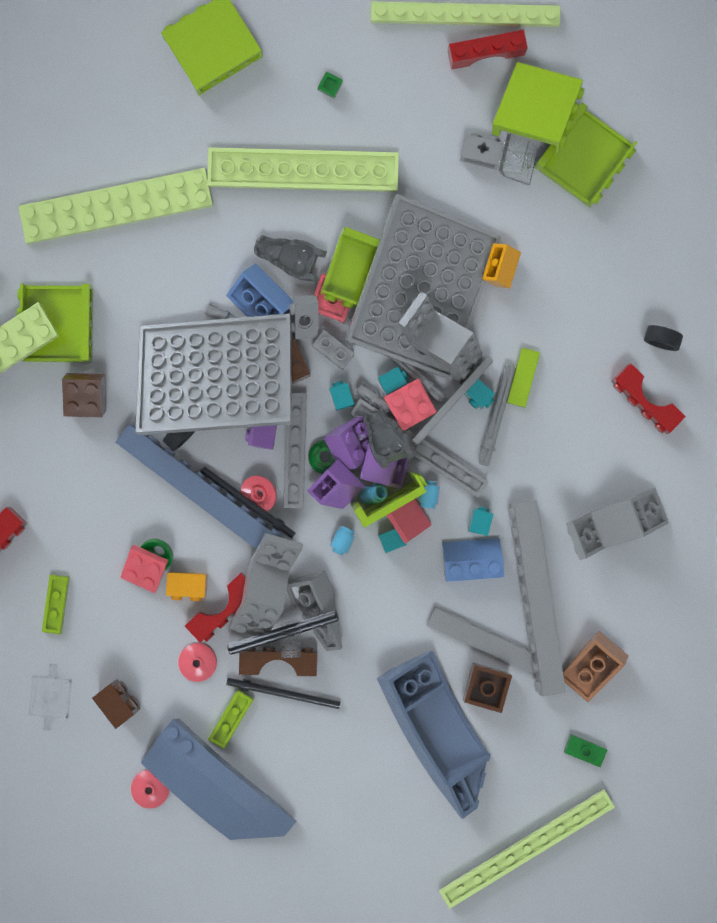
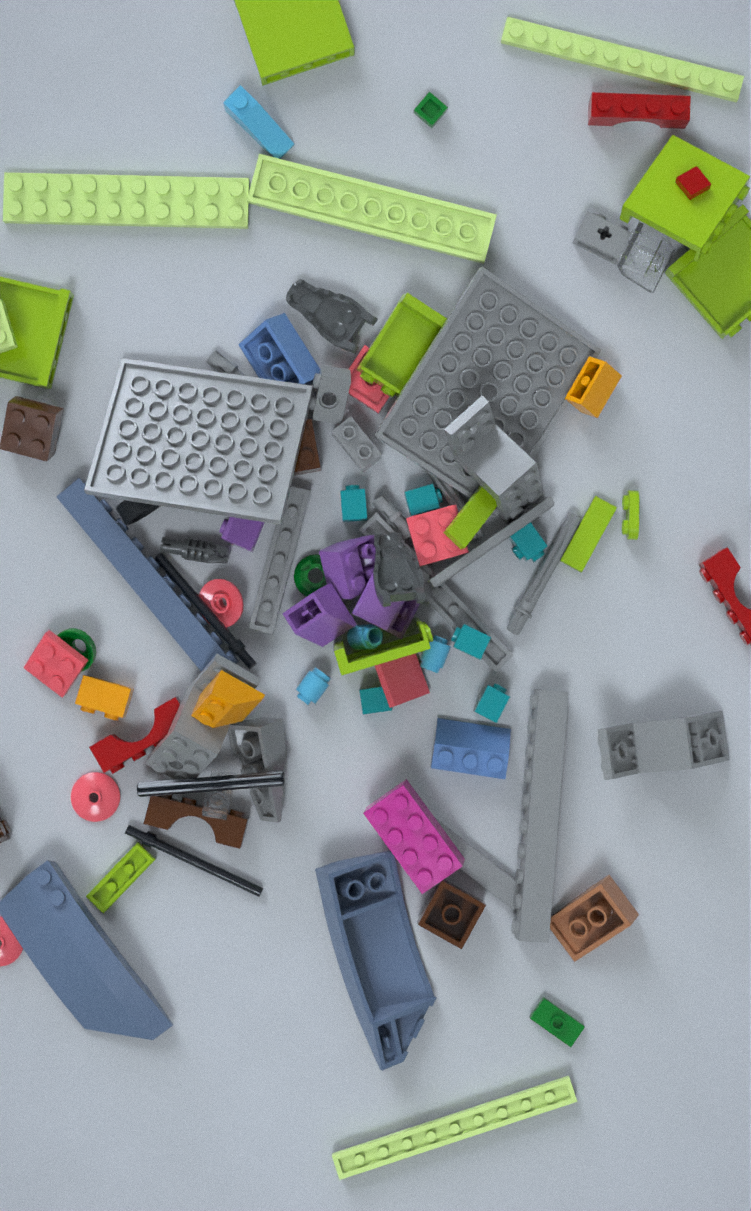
camera: 20 degrees right, 0 degrees up
(201, 124) = (257, 123): none -> medium azure slope
(230, 458) = (196, 550): none -> dark grey hinge
(280, 567) = (225, 701): none -> light orange slope
(433, 385) = (471, 518): none -> lime tile
(445, 636) = (414, 836): none -> dark pink brick
(454, 479) = (470, 641): none -> teal brick
(541, 94) = (693, 183): none -> red tile
(553, 363) = (630, 526): none -> lime plate

